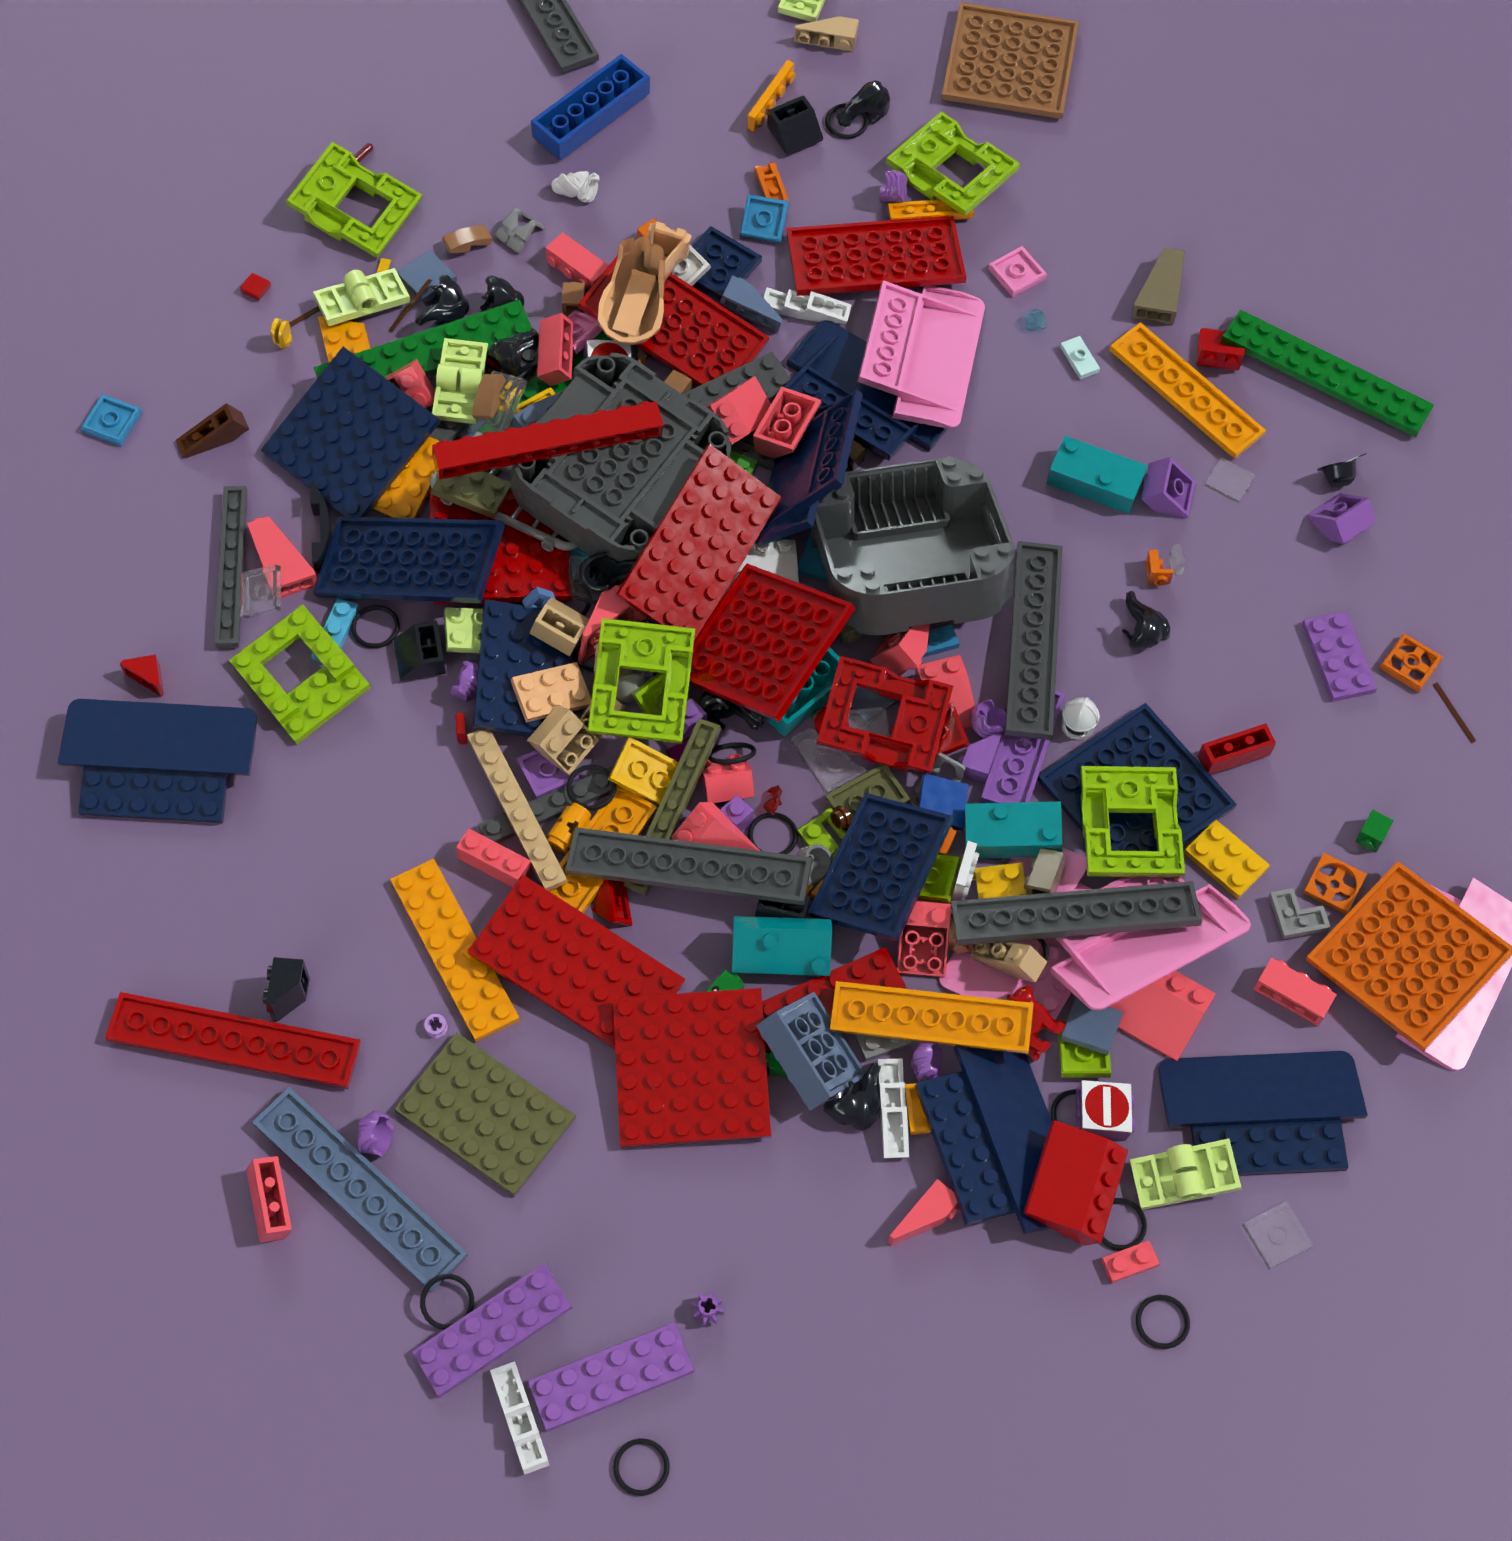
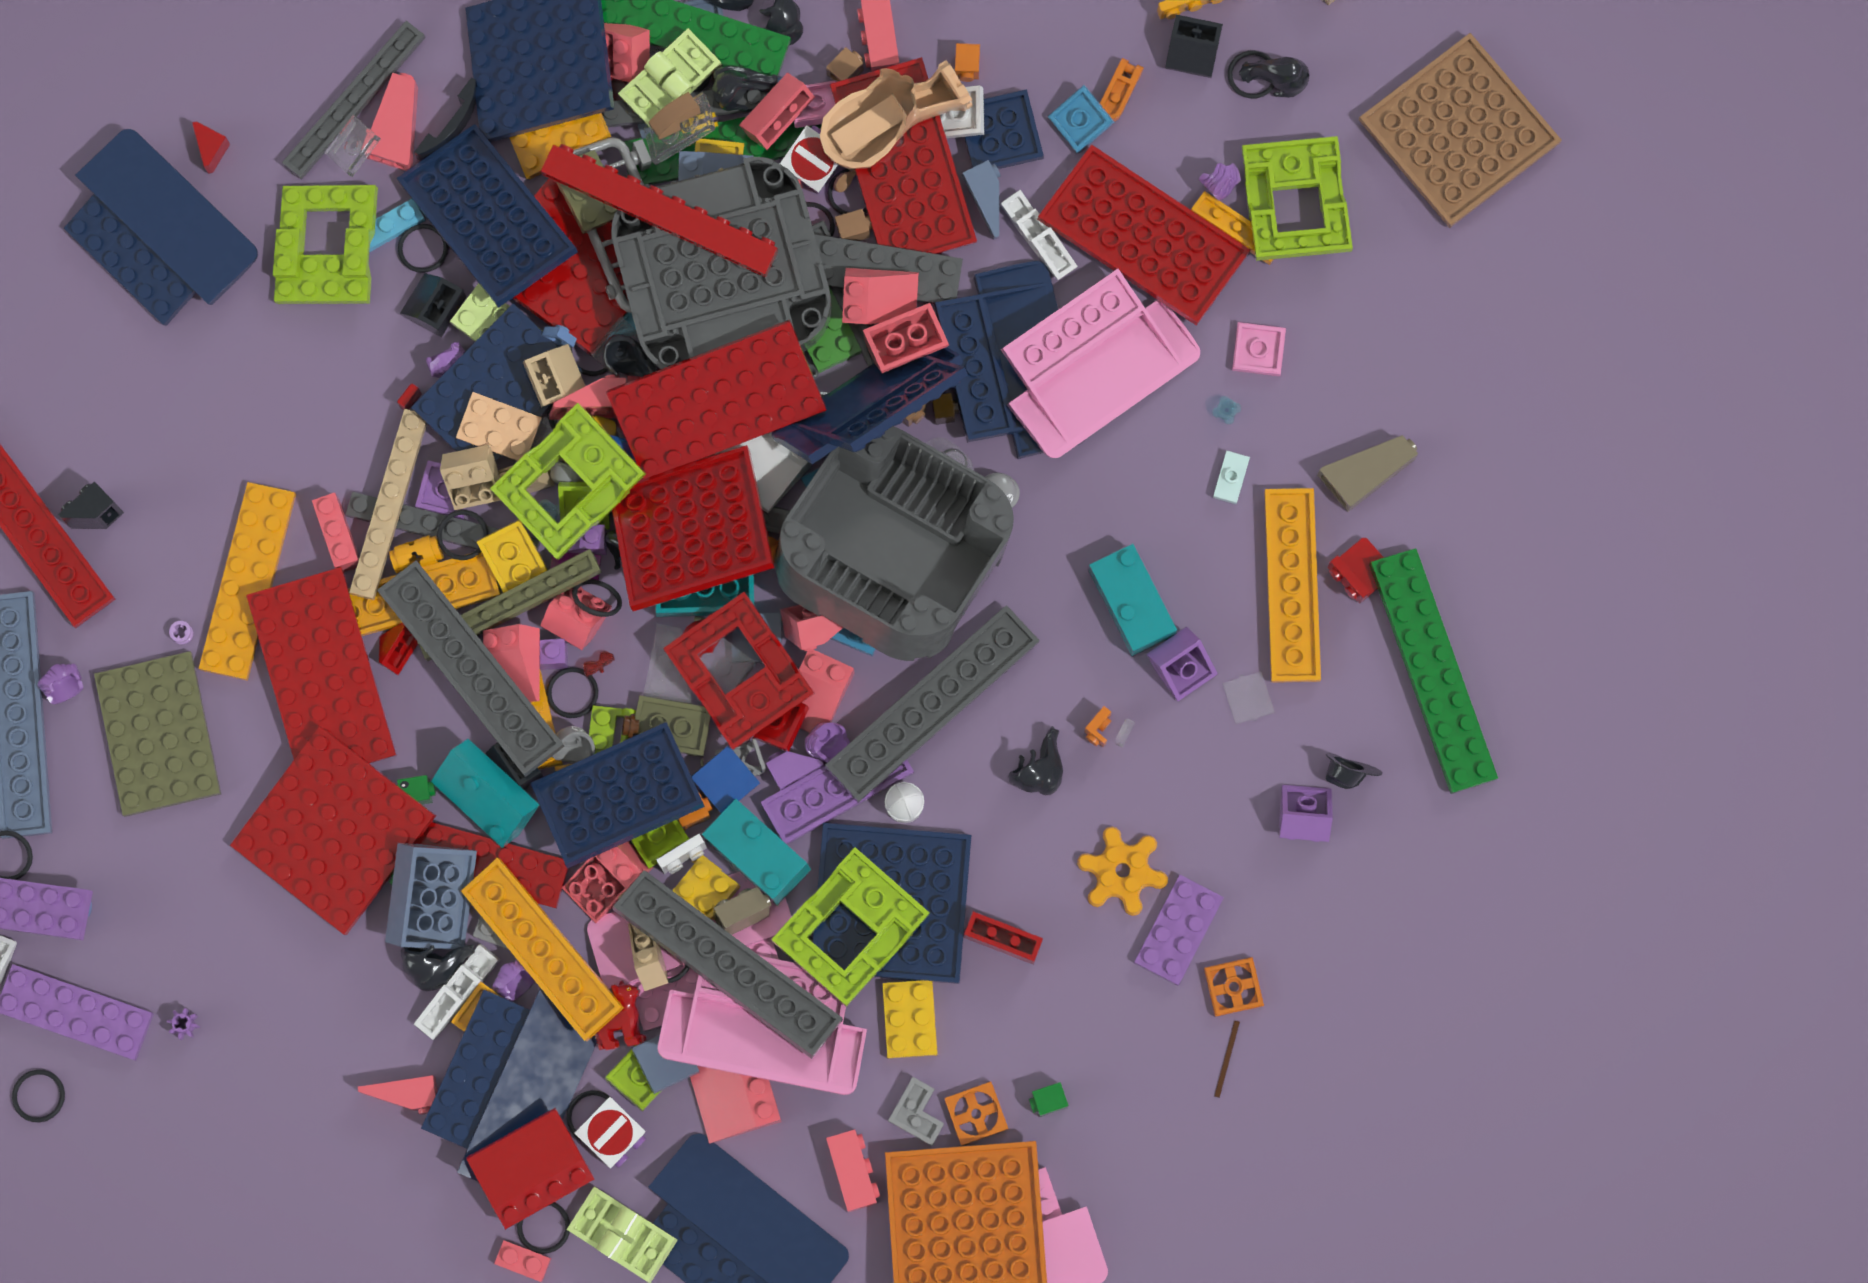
camera: 45 degrees right, 15 degrees up
(1263, 662) = (1128, 887): none -> light orange plate

